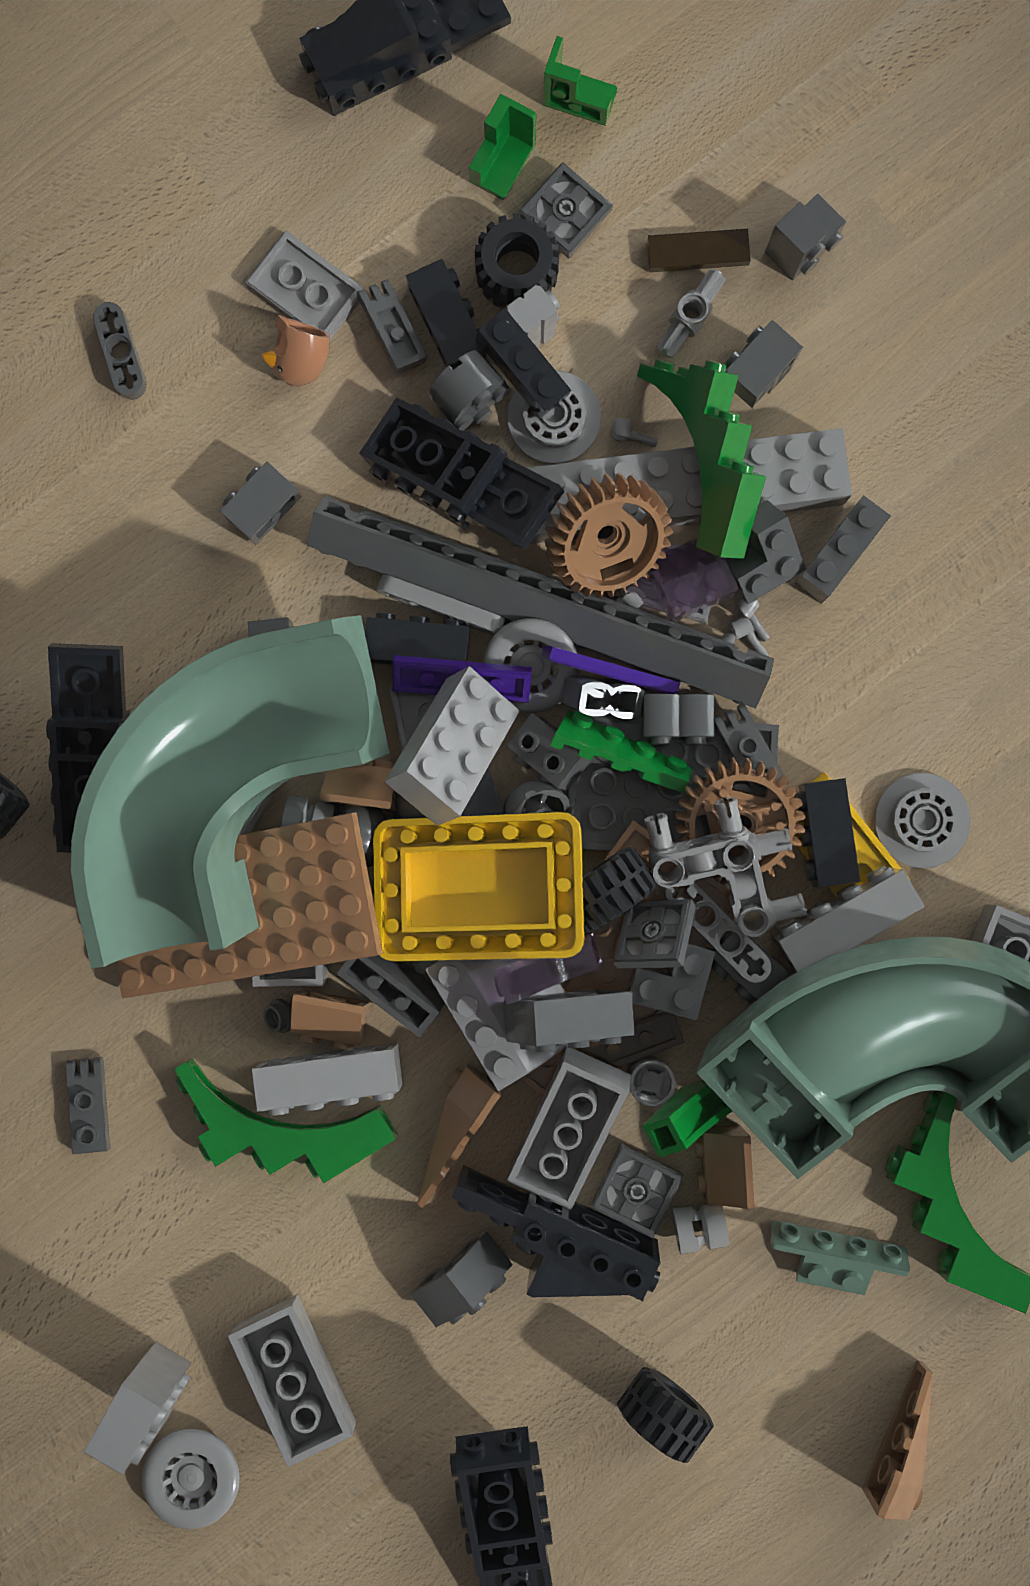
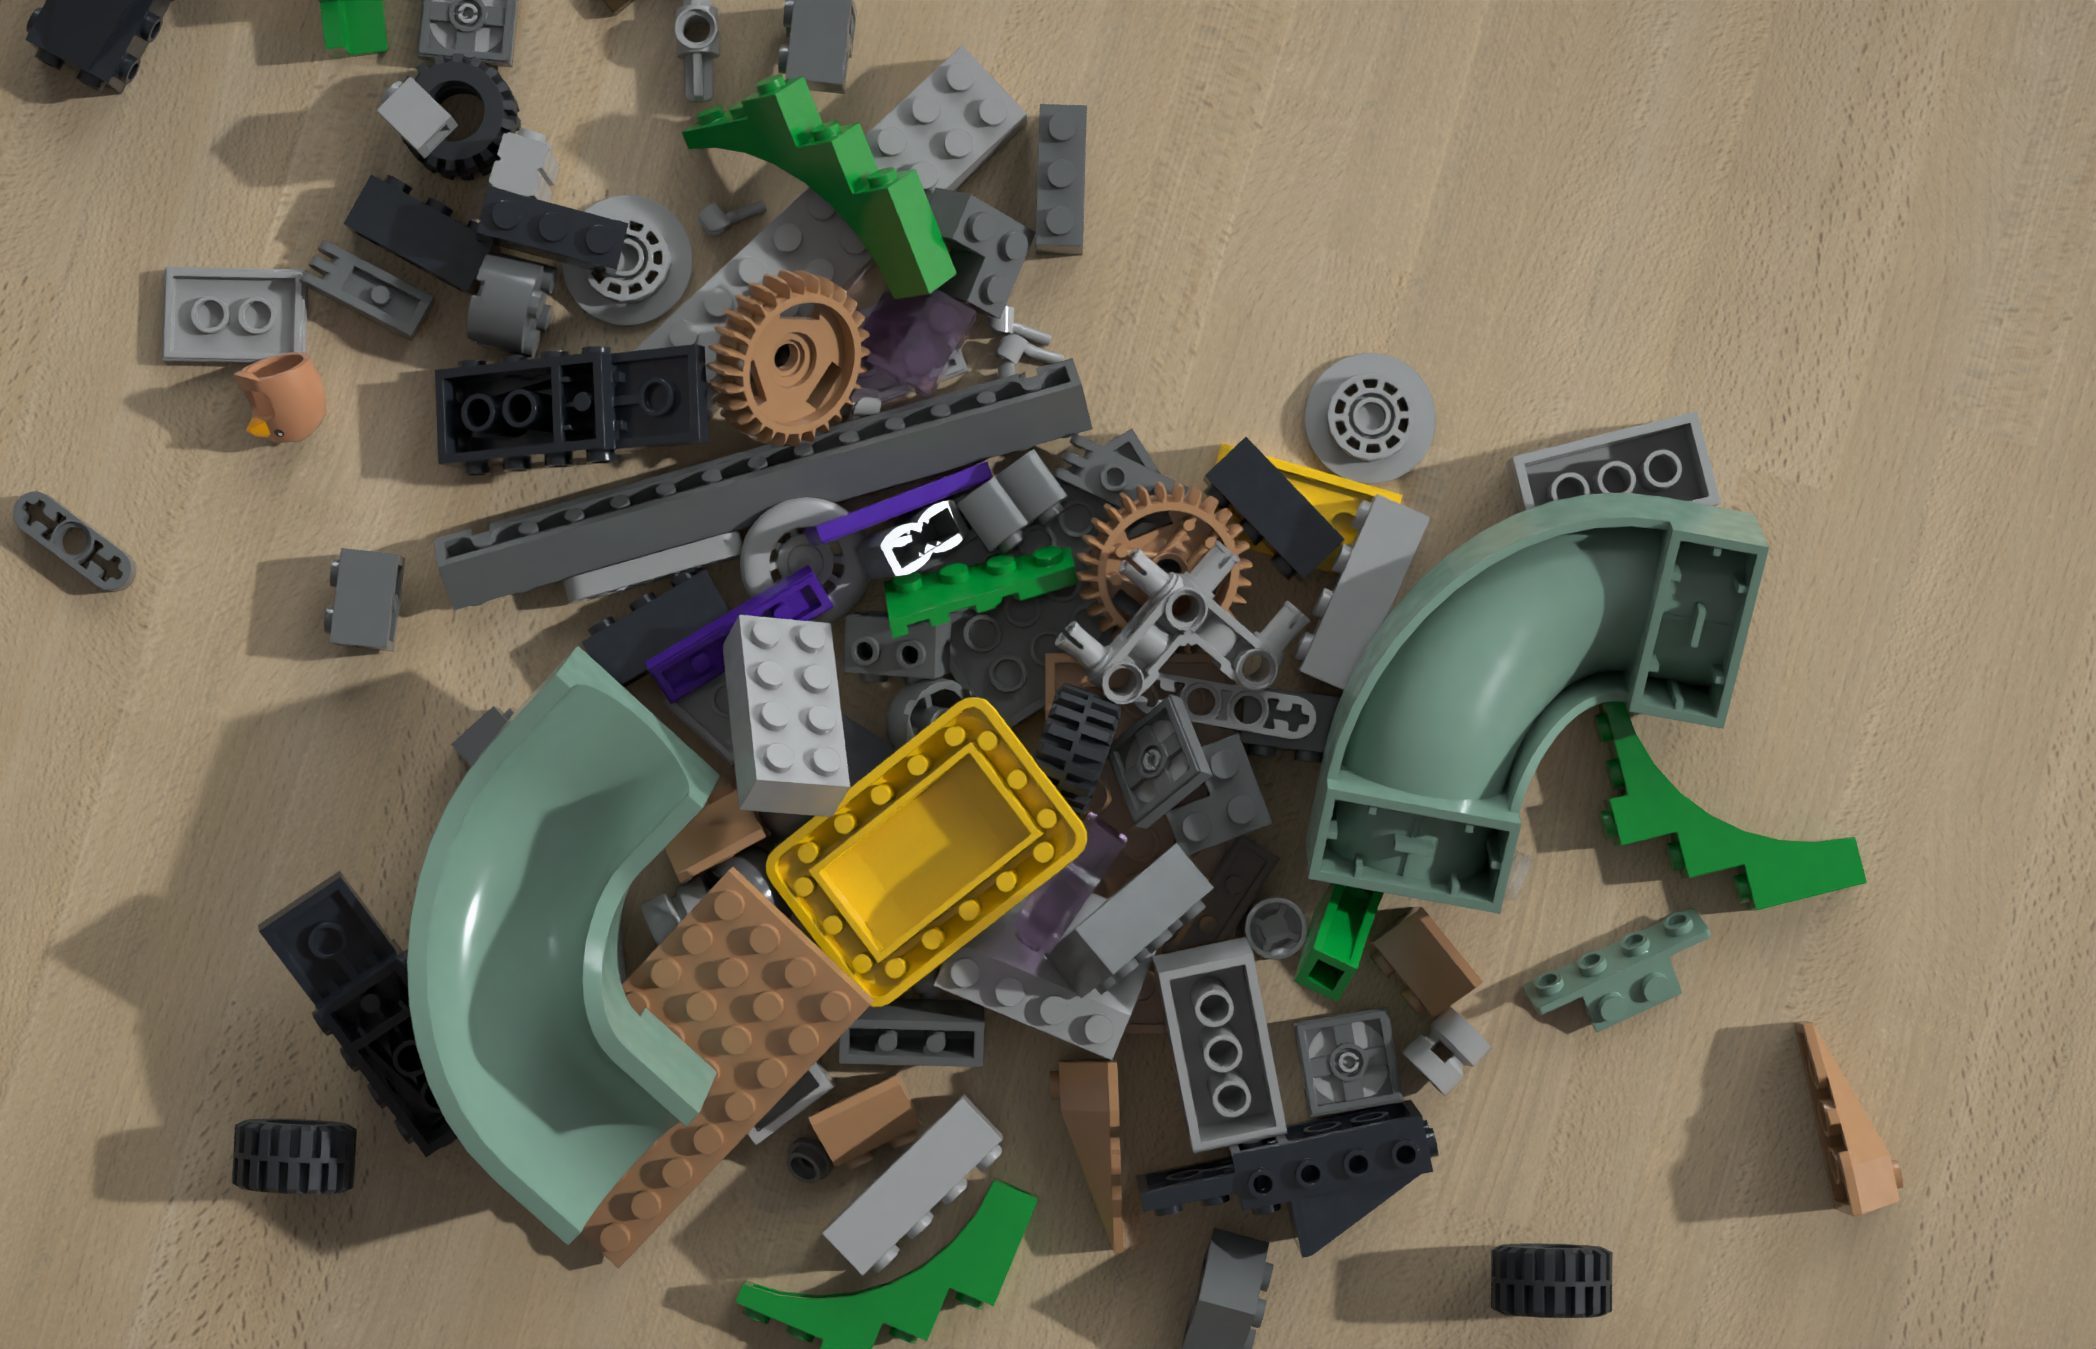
camera: 40 degrees left, 0 degrees up
(492, 238) = (416, 116): none -> light grey brick

